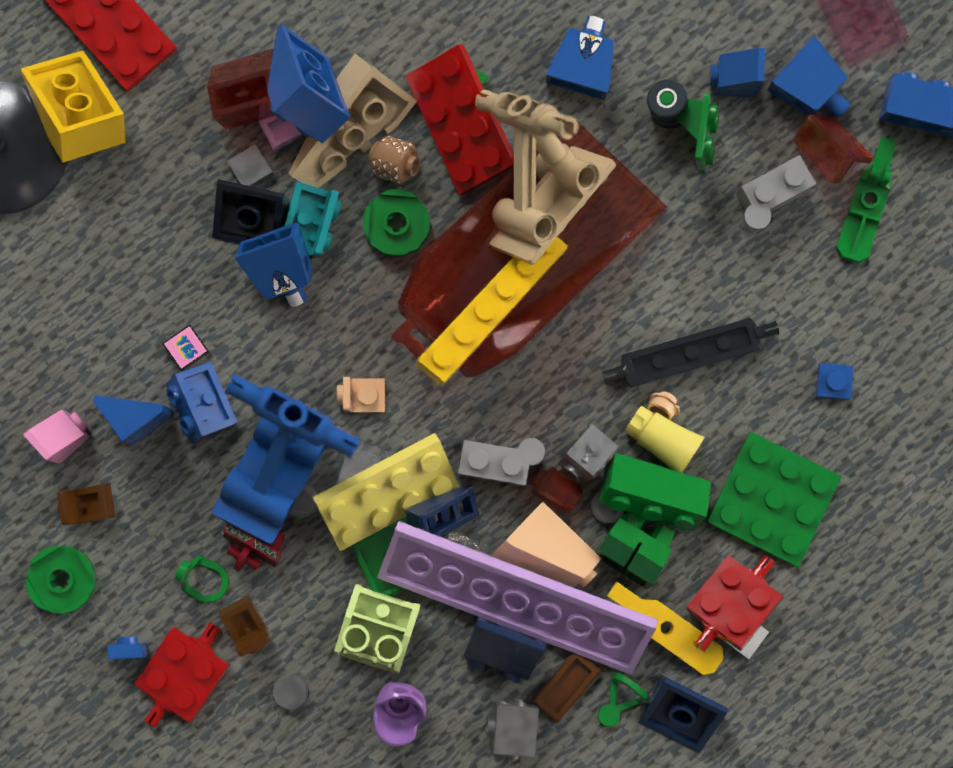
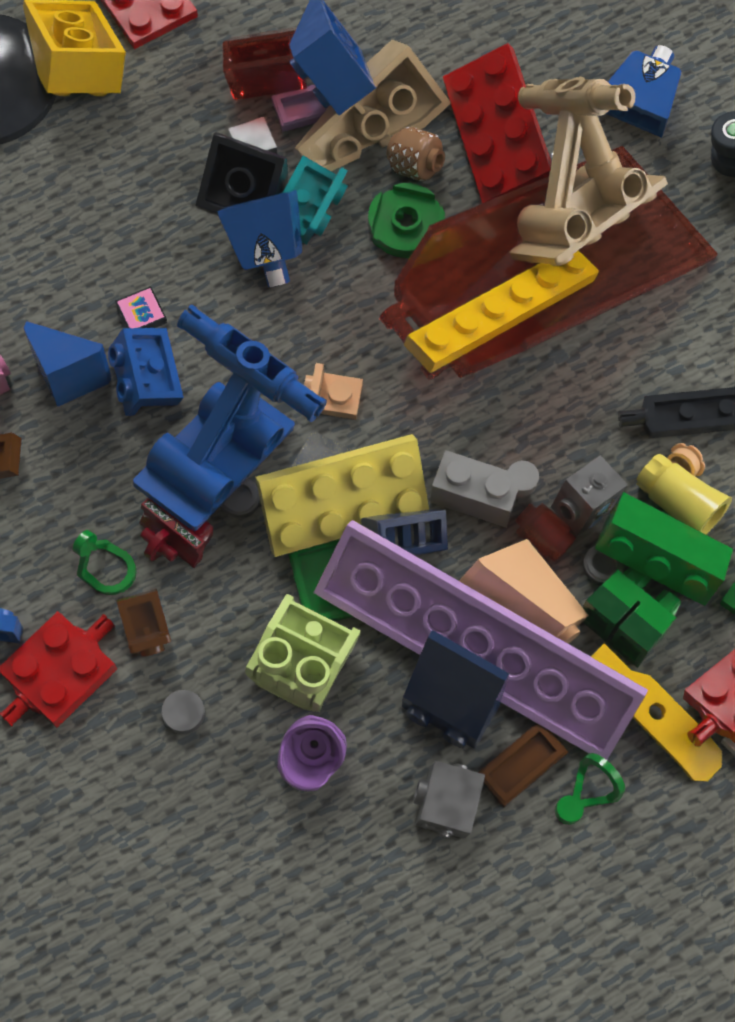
camera: 15 degrees right, 15 degrees down
(682, 714) = (664, 818): dark blue slope -> none

